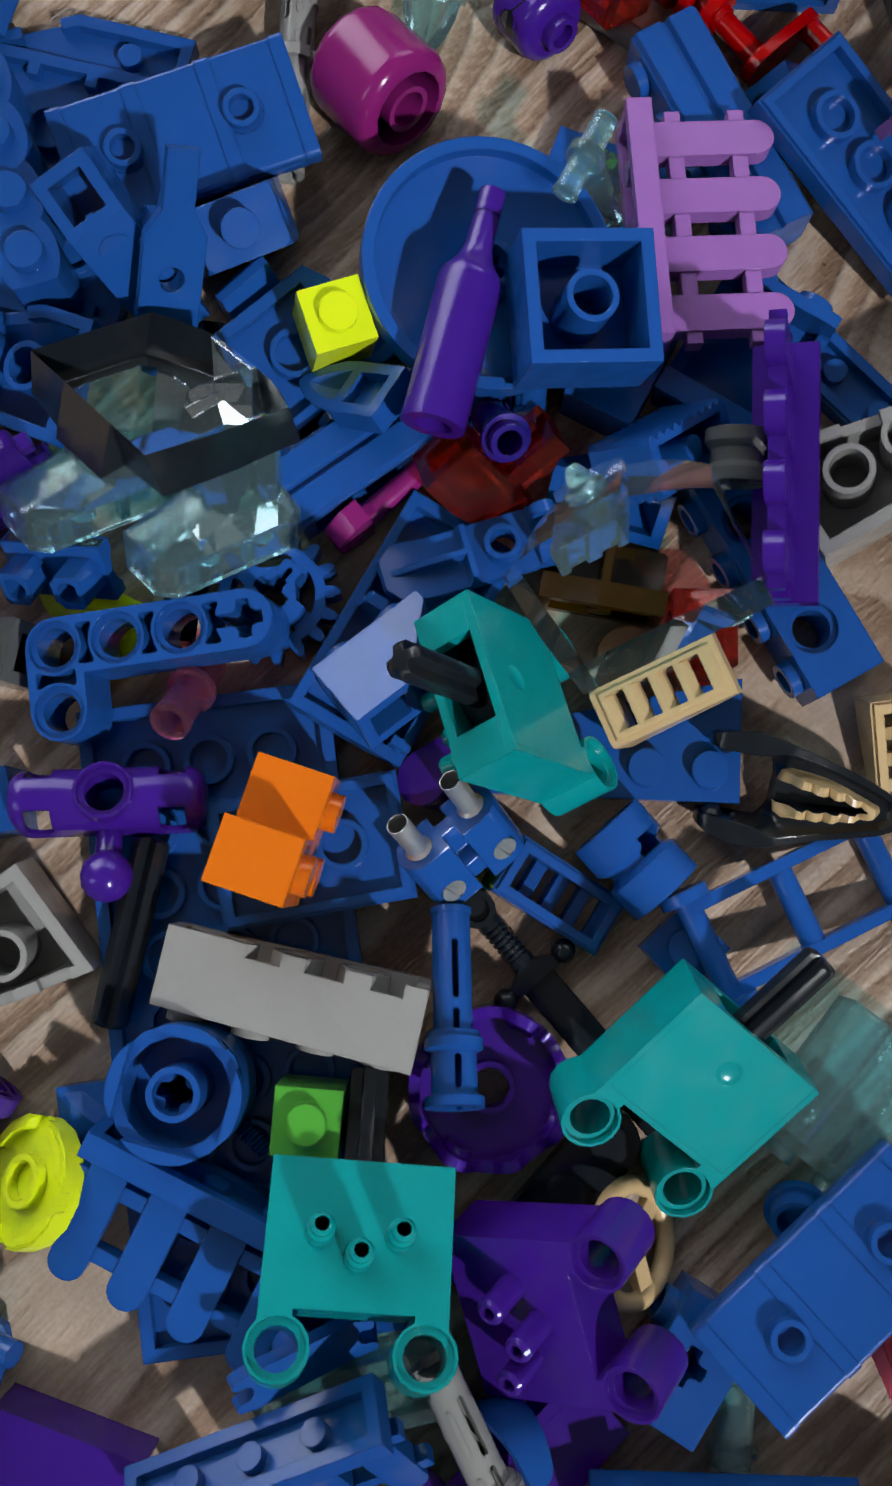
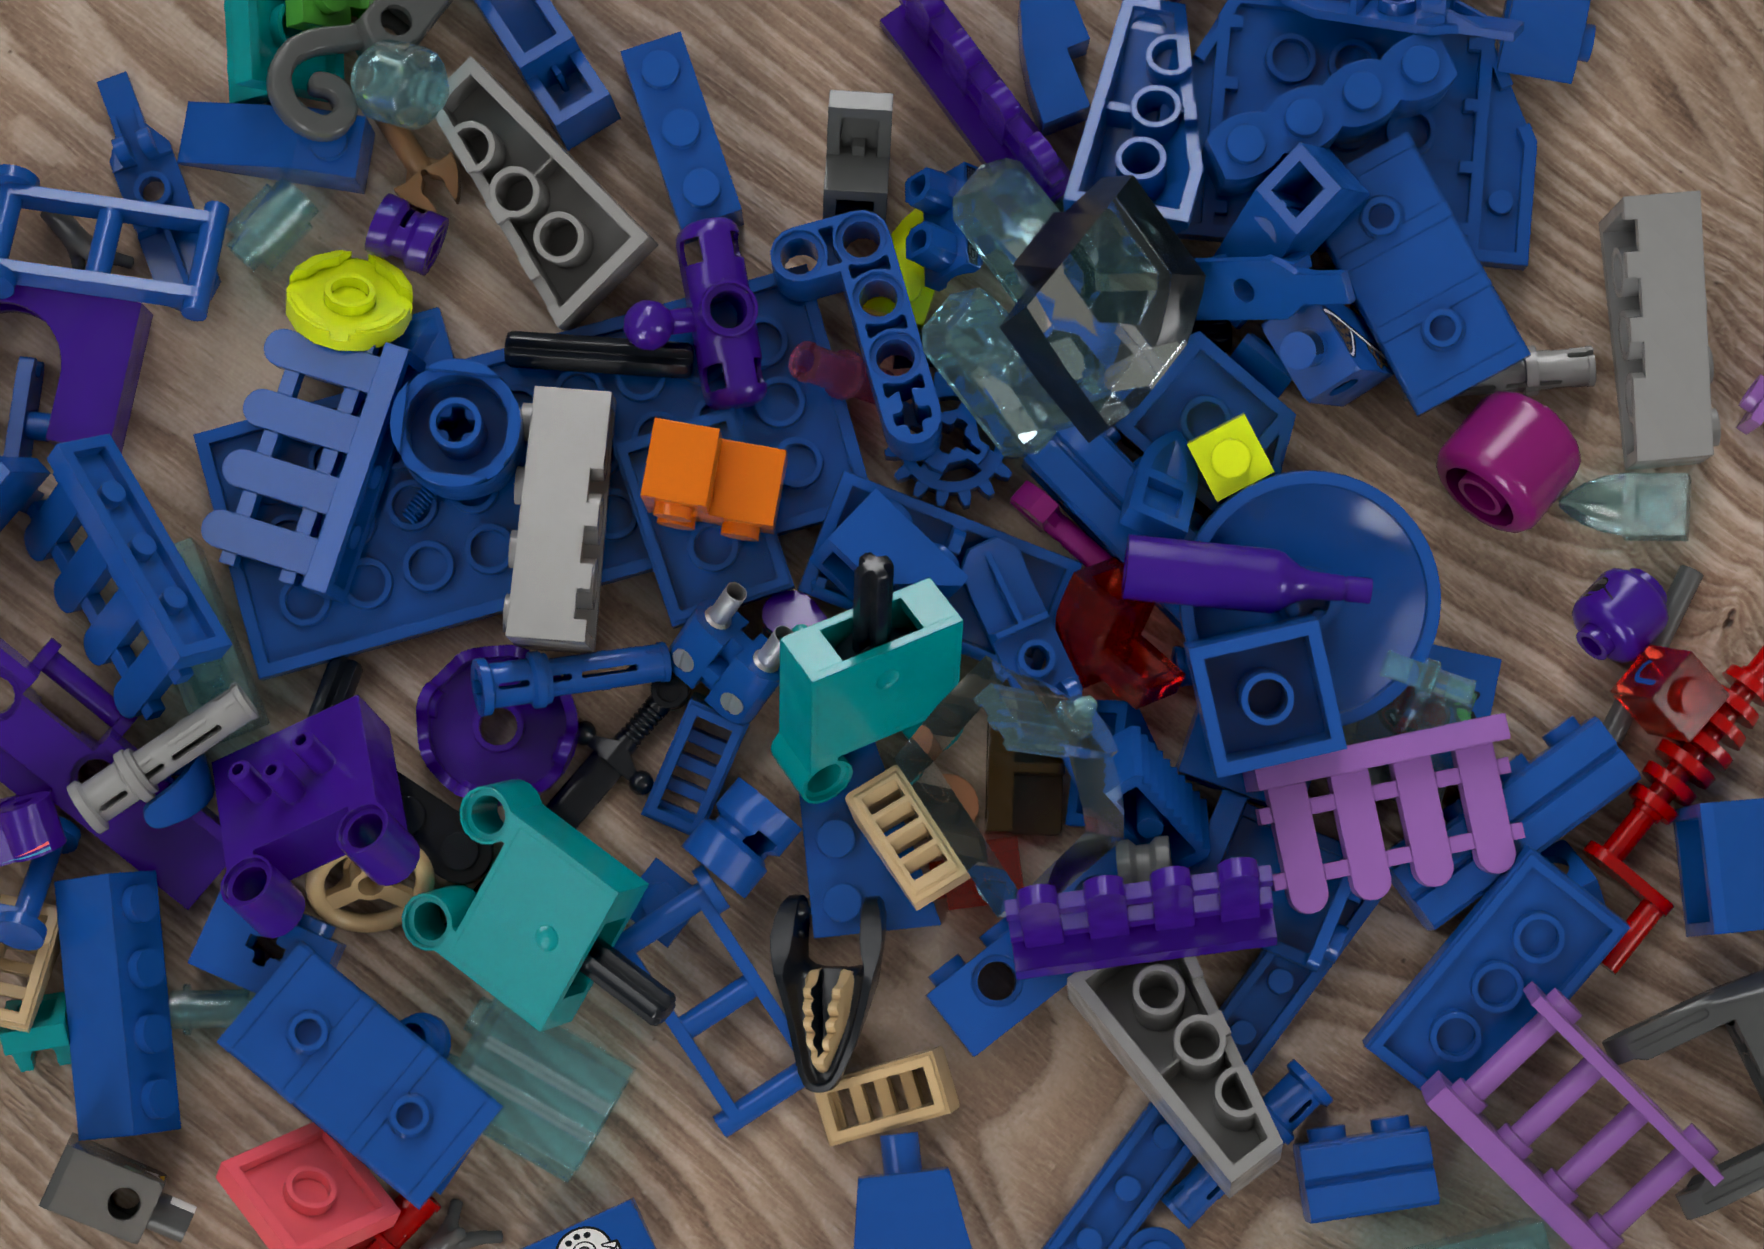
camera: 75 degrees right, 0 degrees up
(309, 1116) = (449, 554): bright green brick -> none
(330, 1348) = (231, 588): blue piece -> none
(358, 1245) = (343, 612): teal piece -> none
(502, 432) = (1141, 641): dark purple pin -> none

